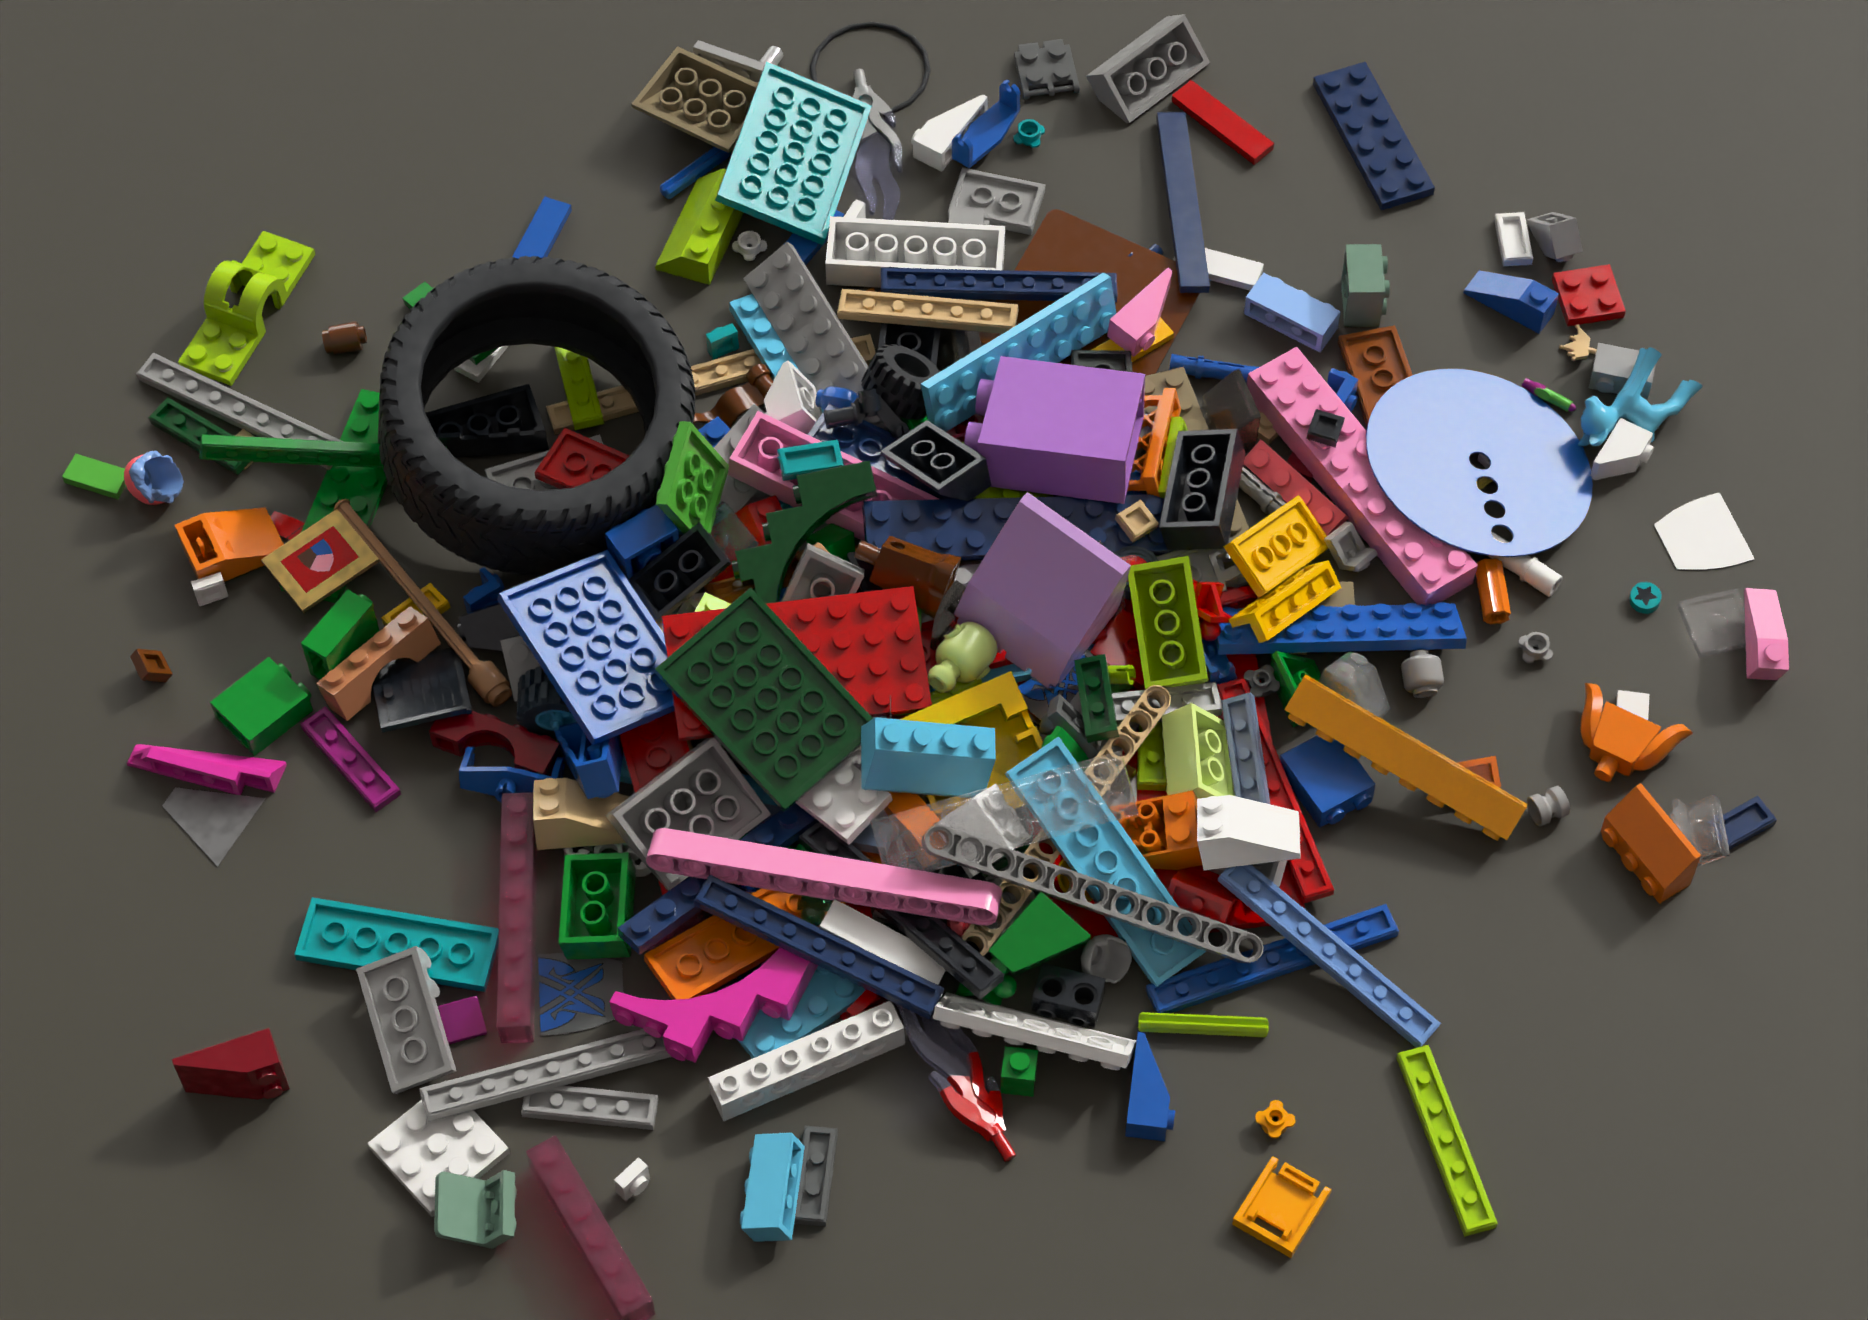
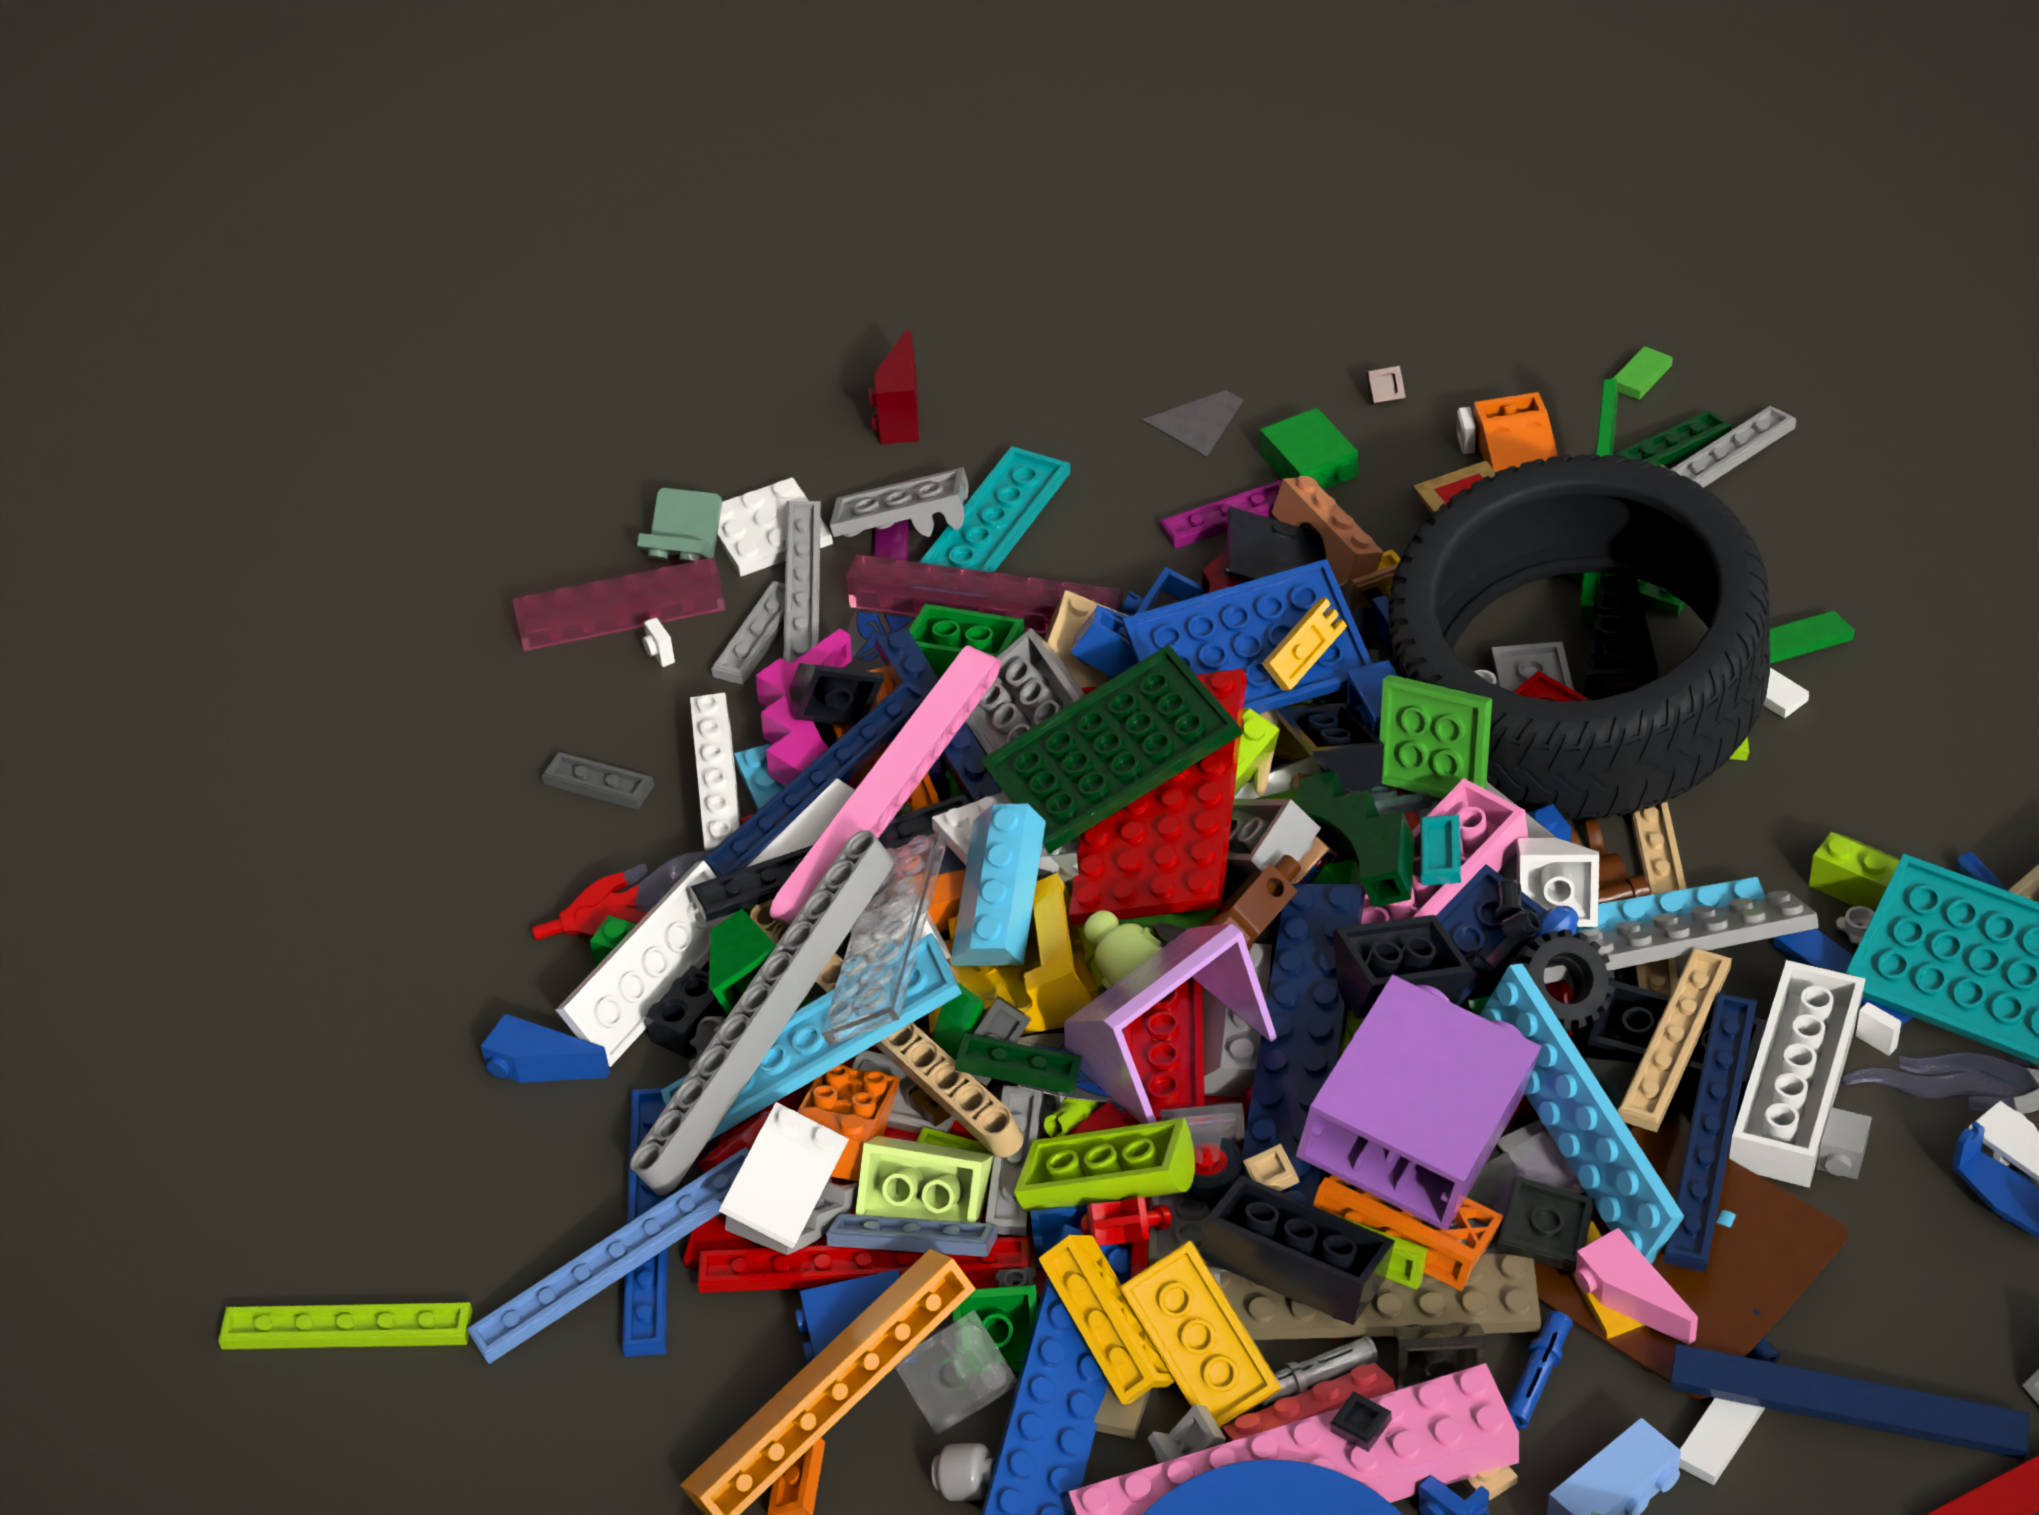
camera: 110 degrees right, 15 degrees down
(153, 478) = (1629, 390): medium blue hair -> none
(209, 769) = (1255, 407): dark pink wedge -> none
(233, 334) = (1874, 504): lime piece -> none
(339, 633) = (1365, 496): green brick -> none
(344, 338) = (1782, 558): reddish brown brick -> none
(543, 229) = (1912, 740): blue tile -> none
(600, 593) = (1304, 645): none -> yellow hinge
(713, 958) = (833, 693): none -> black slope
(722, 341) = (1703, 866): teal plate -> none
(772, 1187) = (593, 734): medium azure brick -> none
(1004, 199) = (1895, 1196): light grey tile -> none
(1029, 127) = (2017, 1247): teal plate -> none
(1203, 1024) = (598, 1131): lime axle -> none
(1273, 1128) = (453, 1166): light orange plate -> none
(1283, 1202) = (359, 1155): light orange container -> none

